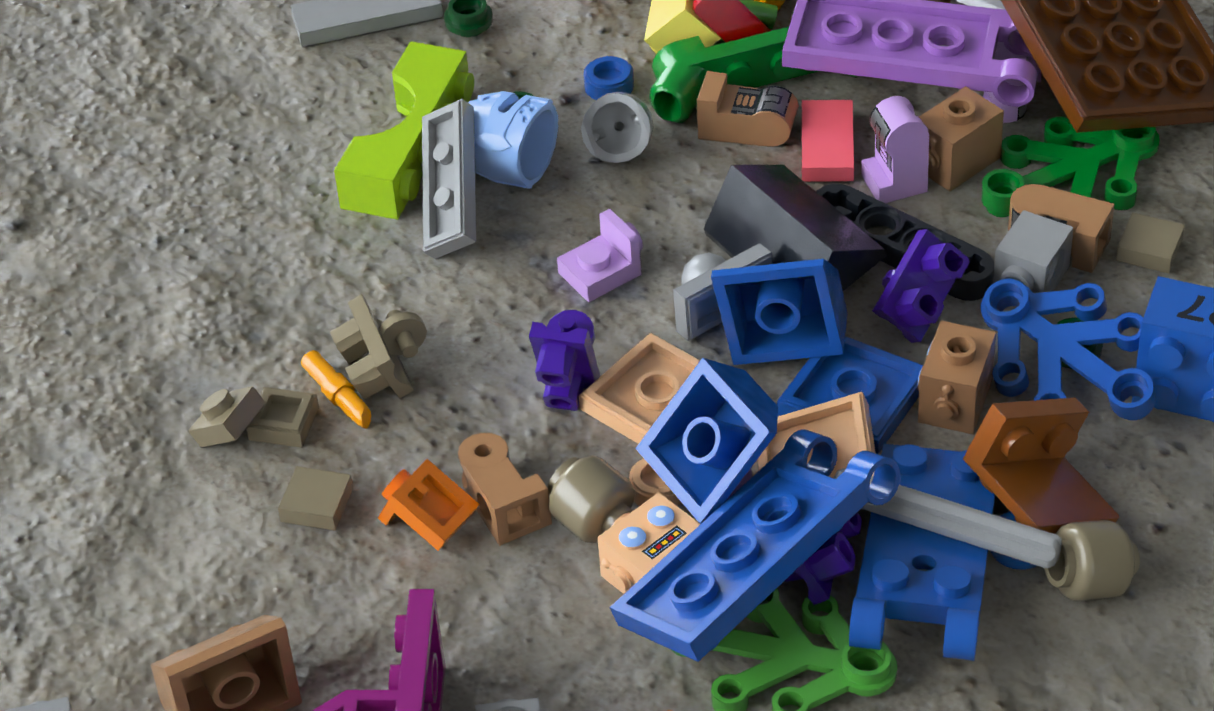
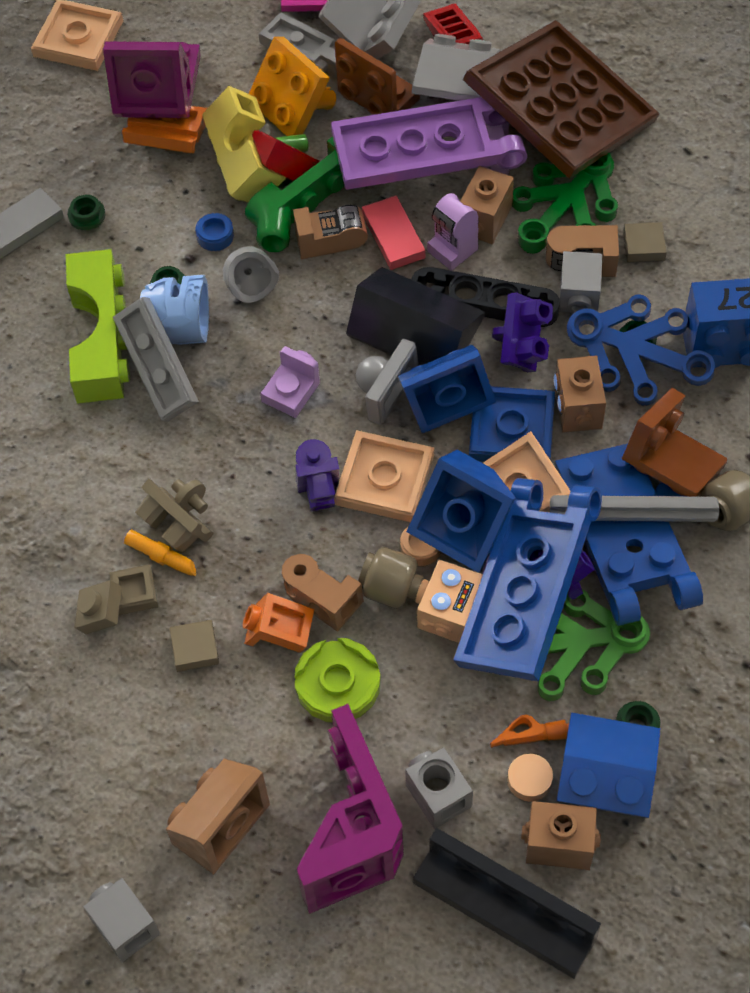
camera: 25 degrees left, 15 degrees up
(475, 592) = (335, 676): none -> lime tile

